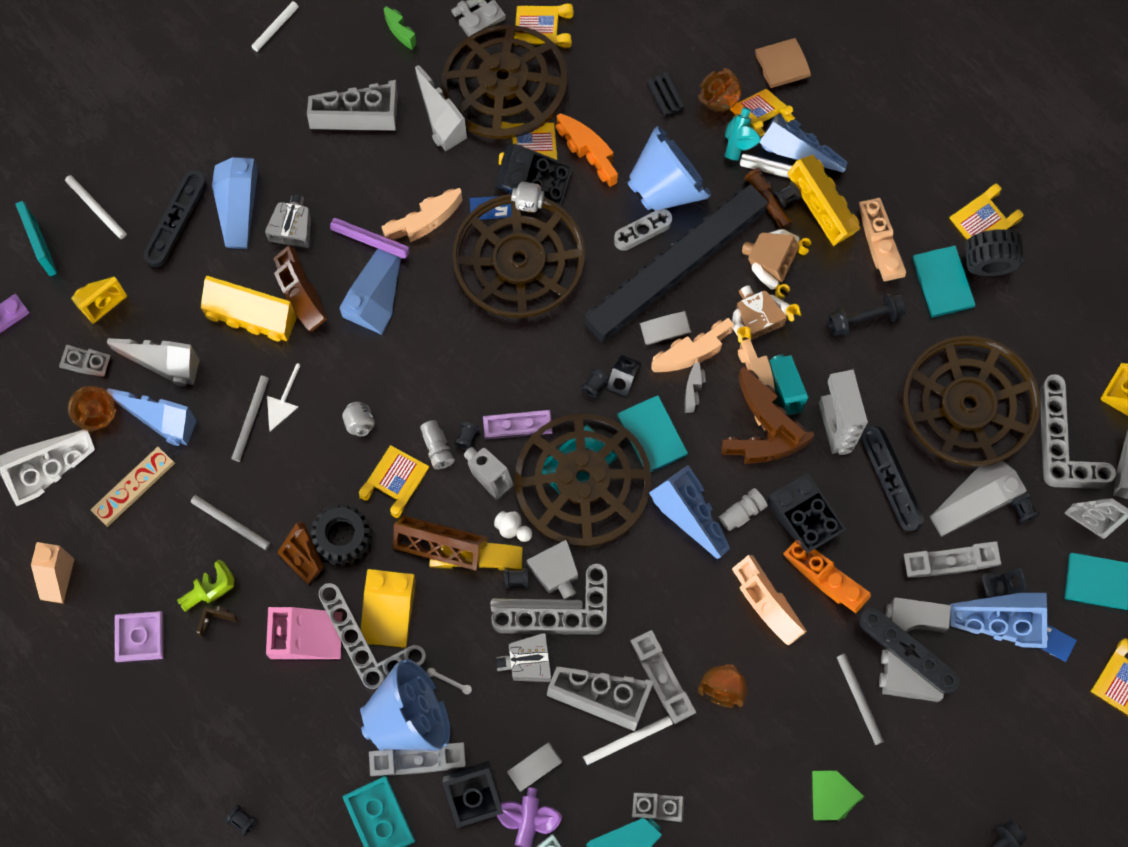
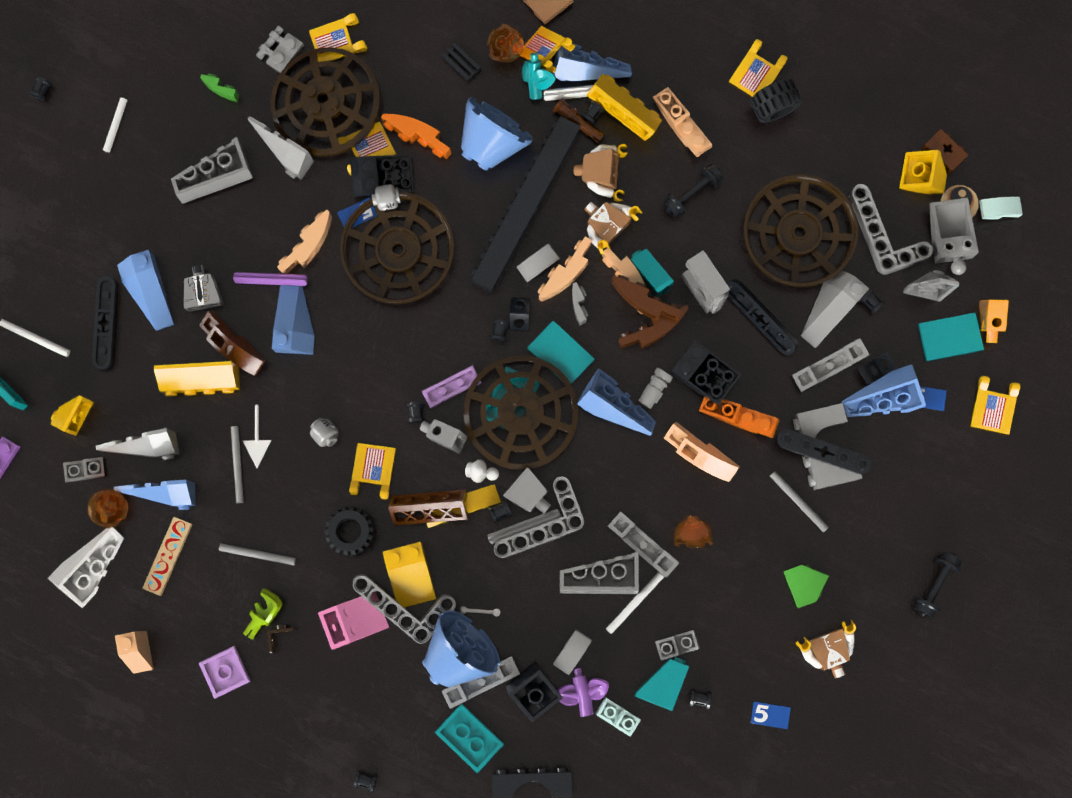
camera: 15 degrees left, 10 degrees up
(301, 553) = (324, 558): reddish brown wing -> none
(436, 443) = (393, 428): light grey axle -> none
(527, 660) = (534, 572): light grey torso -> none
(646, 220) = (475, 193): light grey beam -> none
(943, 281) = (743, 137): teal tile -> none

